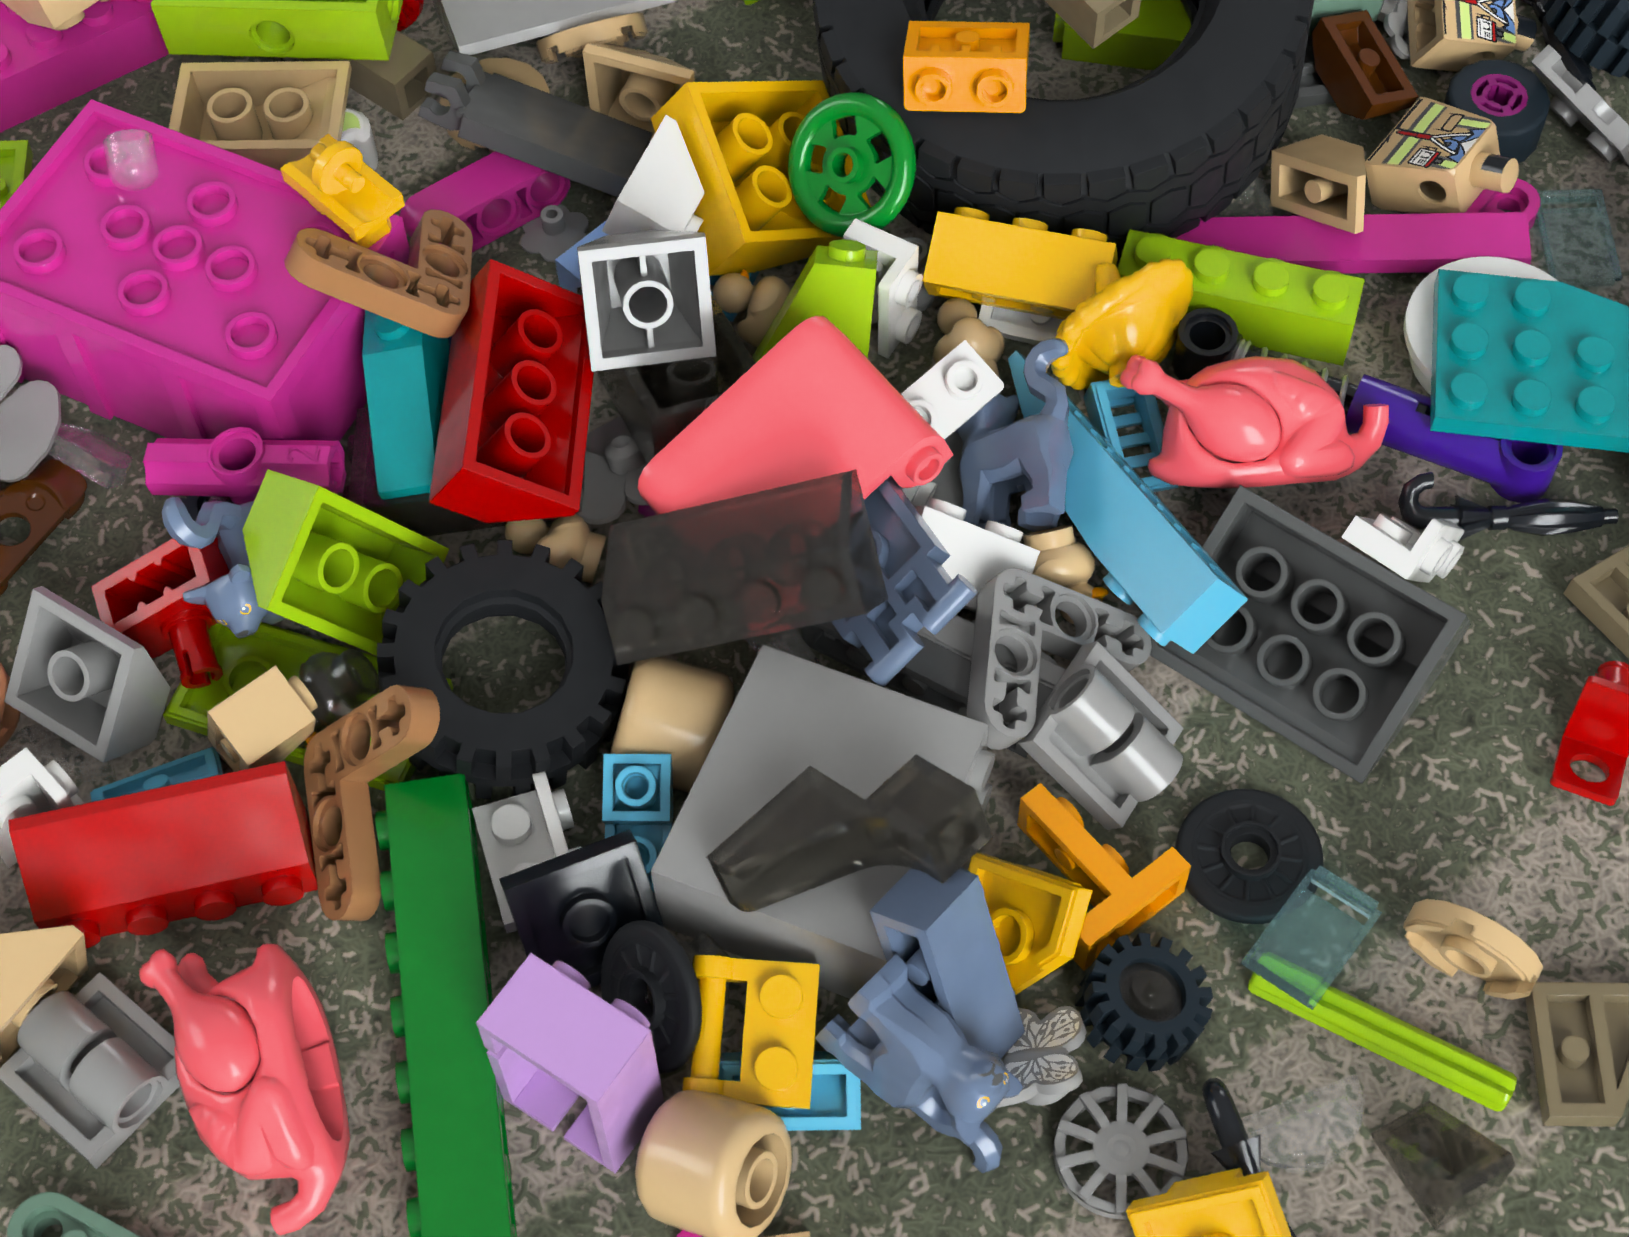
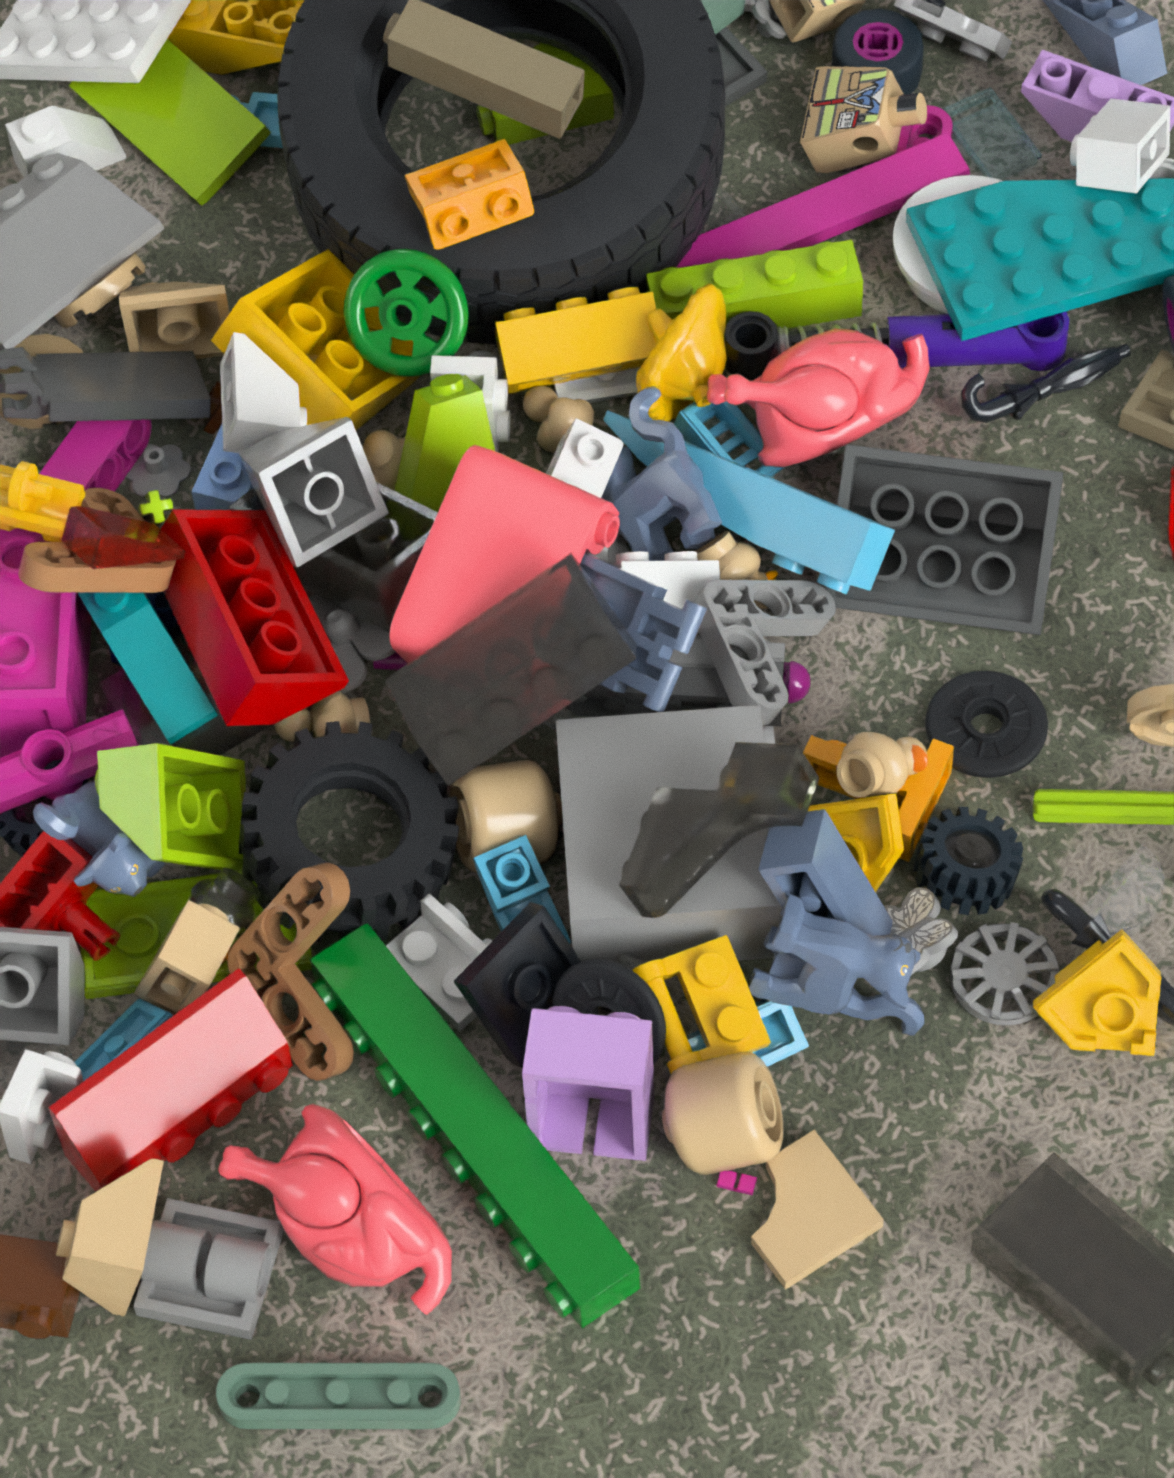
camera: 25 degrees left, 0 degrees up
(406, 262) = (116, 540): none -> clear red slope
(481, 246) = (155, 507): none -> lime axle
(1087, 851) = (878, 764): none -> tan animal
(1105, 737) = (838, 679): light grey plate -> none
(1312, 938) = (1064, 761): clear light blue piece -> none
(1321, 181) = (776, 171): tan slope -> none
(1360, 67) = (757, 62): reddish brown slope -> none
(1405, 549) = (979, 439): white bracket -> none

